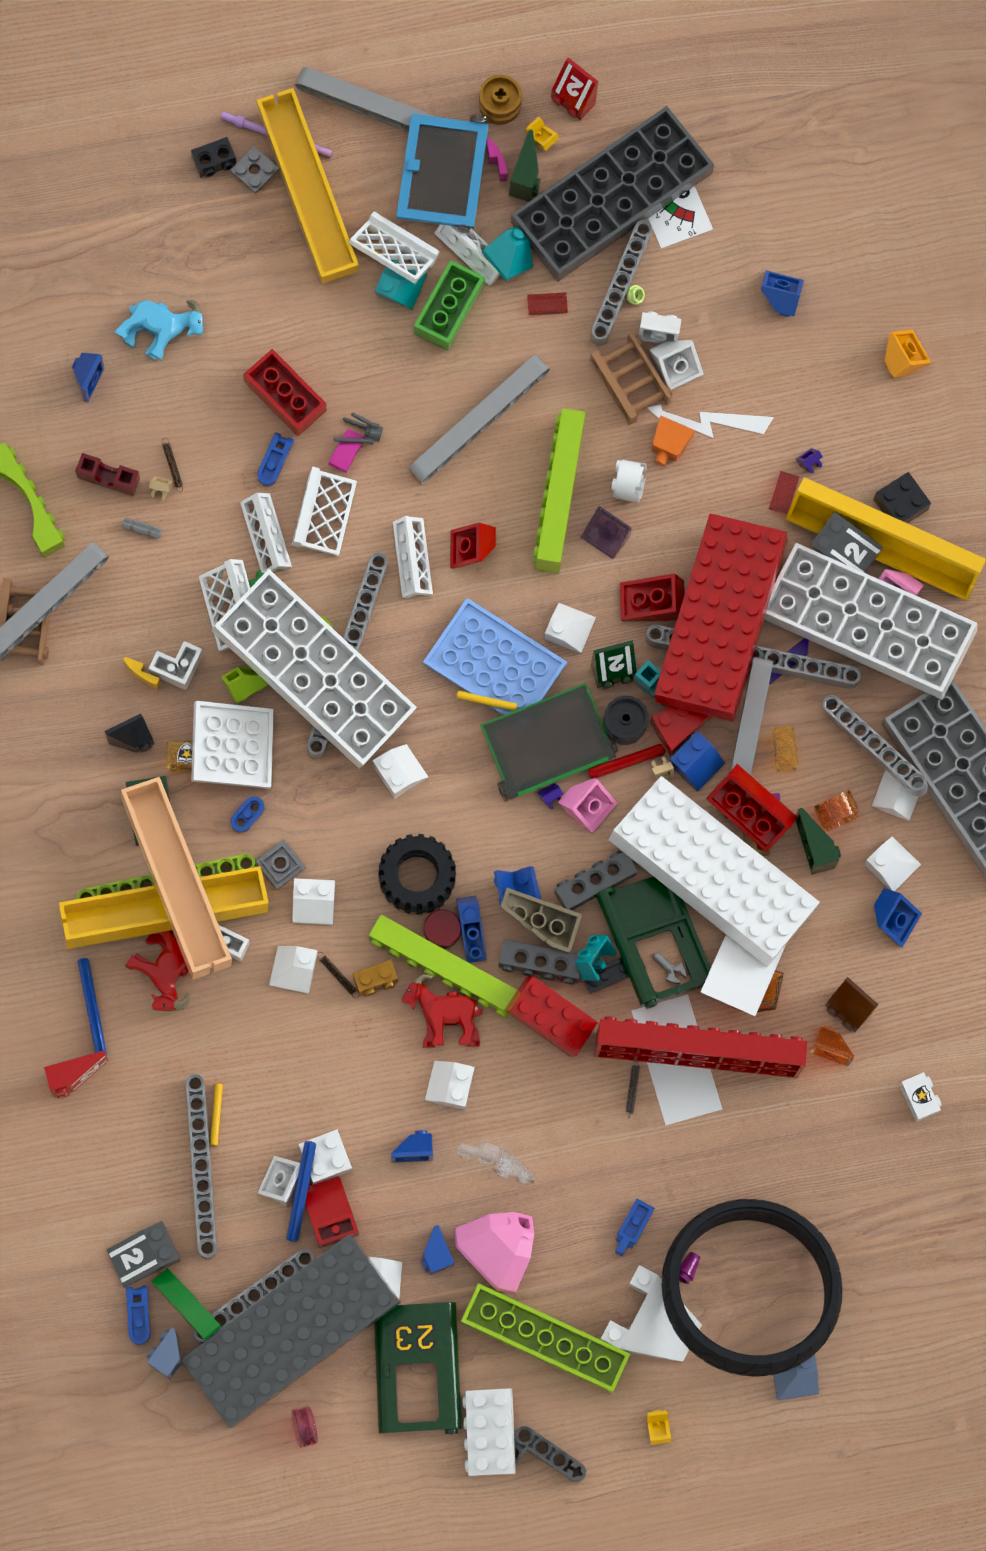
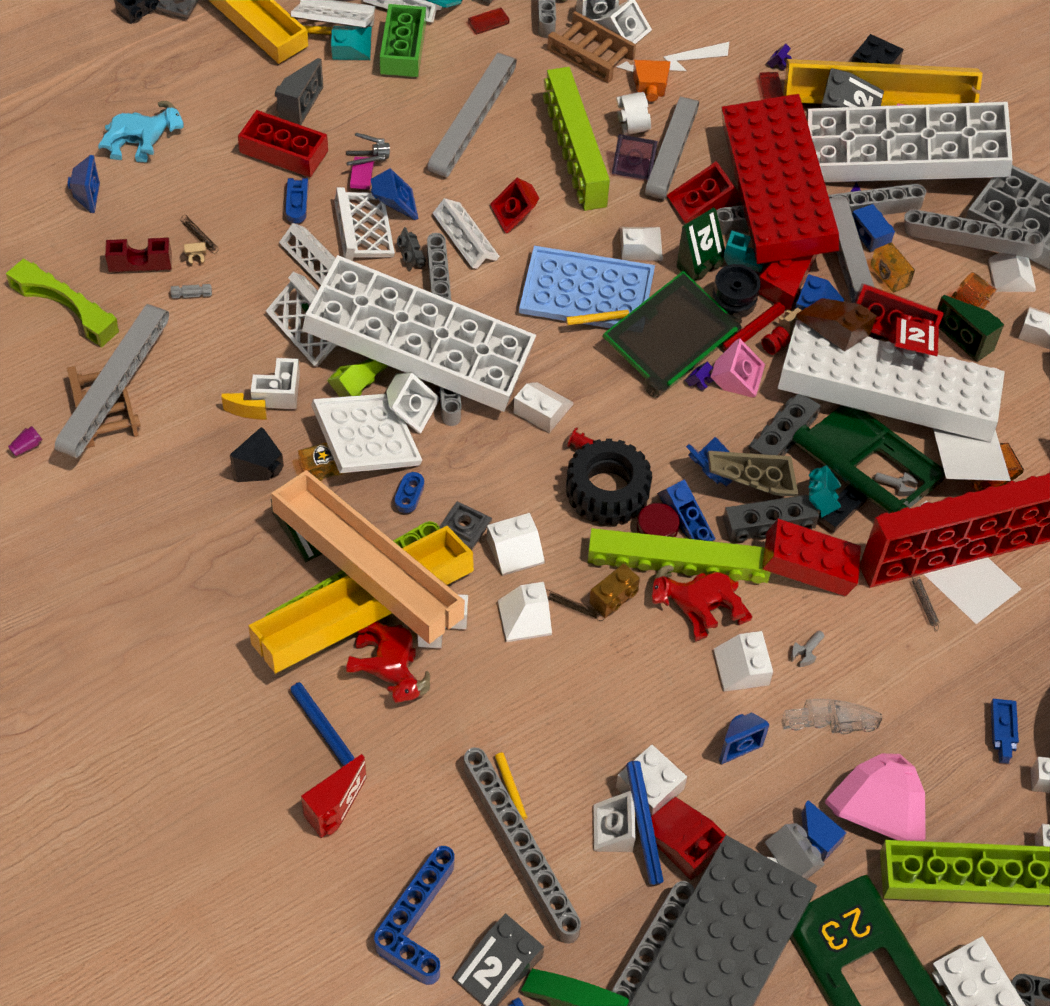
camera: 20 degrees left, 20 degrees down
(95, 1190) = (412, 914): none -> blue beam
(283, 726) = (411, 400): none -> white slope
(322, 338) = (299, 92): none -> dark grey slope
(355, 548) = (410, 250): none -> dark grey hinge
(364, 492) = (394, 193): none -> blue slope
(406, 1262) = (795, 851): none -> light grey brick
(416, 822) = (578, 439): none -> red pin
(511, 1092) = (807, 649): none -> light grey bar
(637, 785) = (773, 342): none -> red wheel
(650, 531) = (672, 148): none -> light grey beam
(690, 797) = (839, 321): none -> reddish brown slope
(748, 843) = (914, 334): none -> red slope
(790, 696) = (872, 227): none -> blue brick

